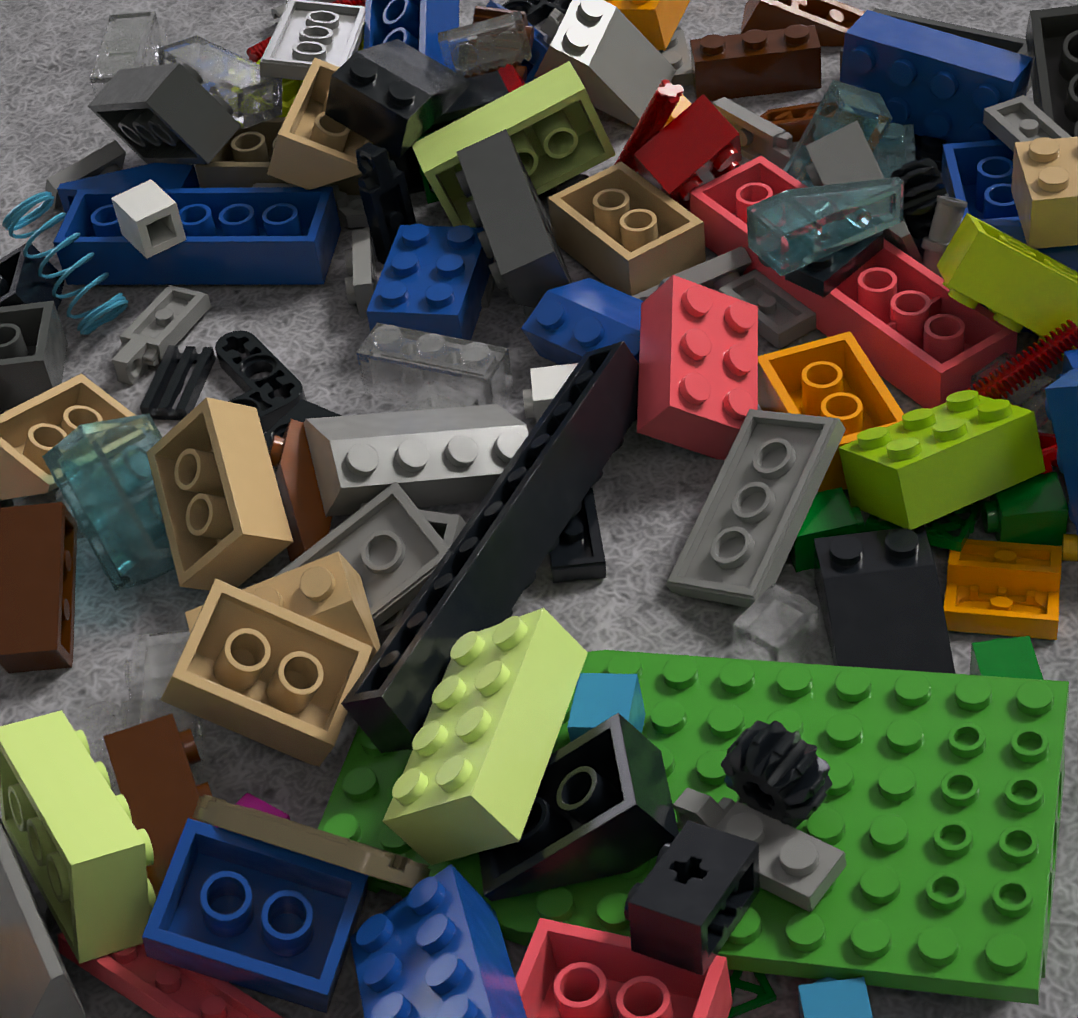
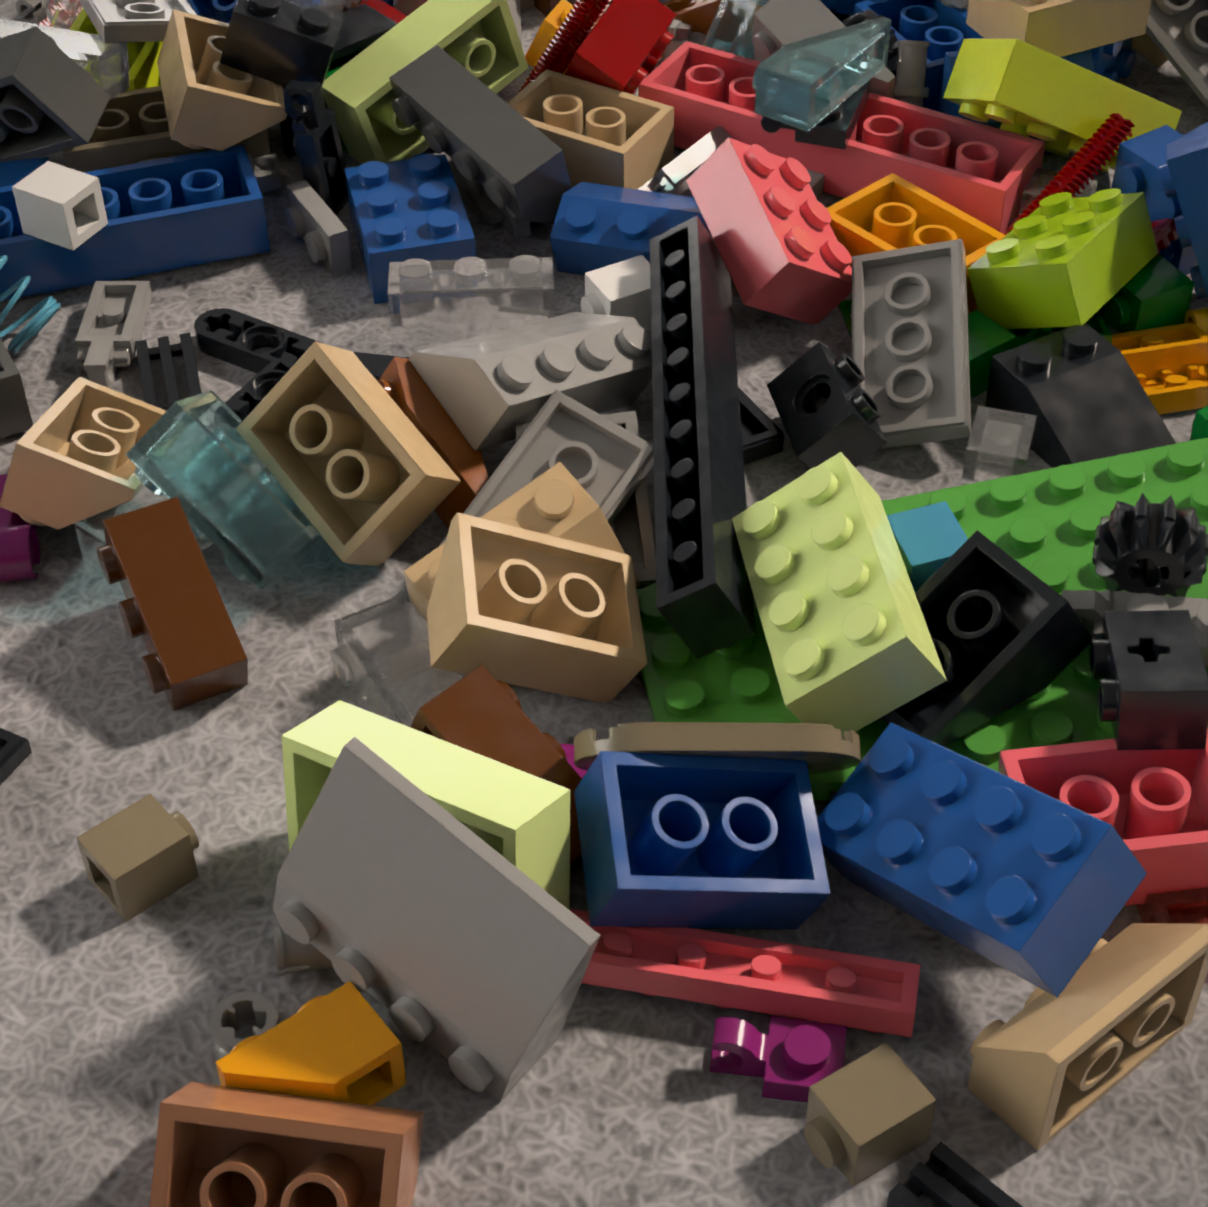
camera: 30 degrees left, 0 degrees up
(645, 554) = (827, 408): none -> black brick

